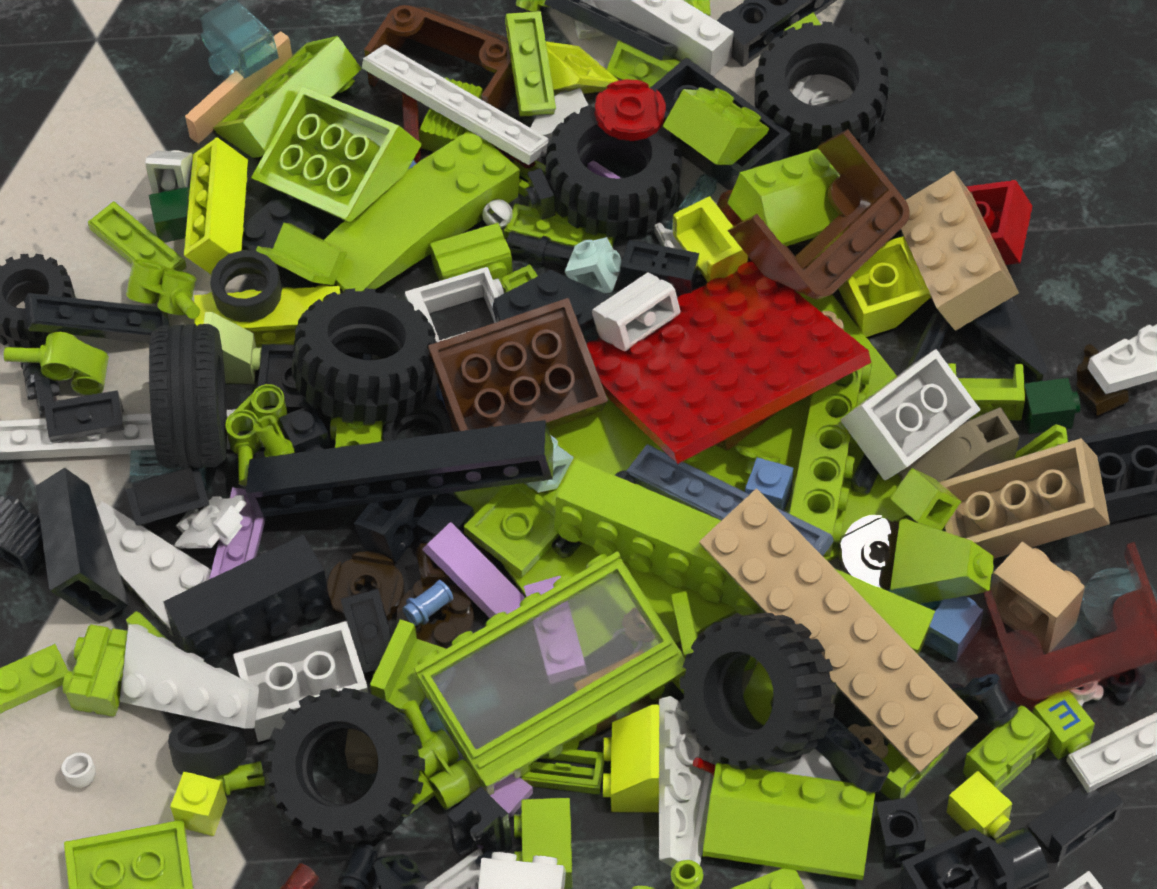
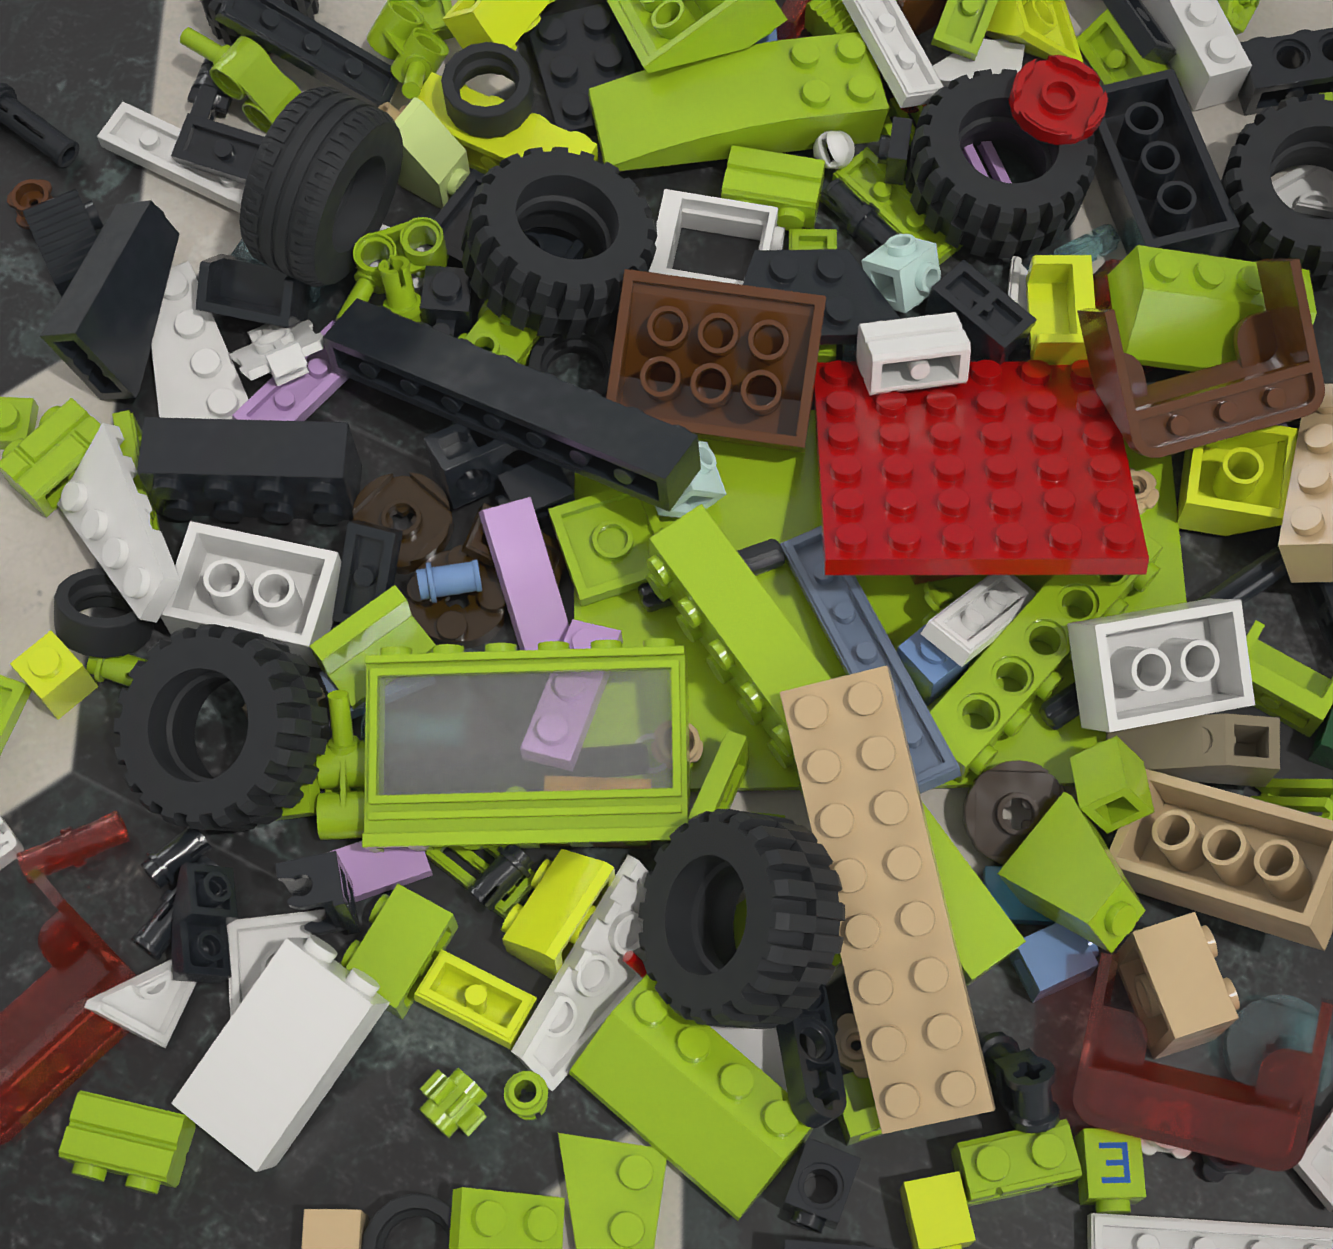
camera: 30 degrees right, 10 degrees up
(306, 255) = (576, 88): lime panel -> none
(581, 767) = (501, 876): none -> black pin
(615, 844) = (476, 999): none -> neon yellow brick
(715, 125) = (1149, 170): lime slope -> none
(782, 444) = (978, 617): none -> white tile

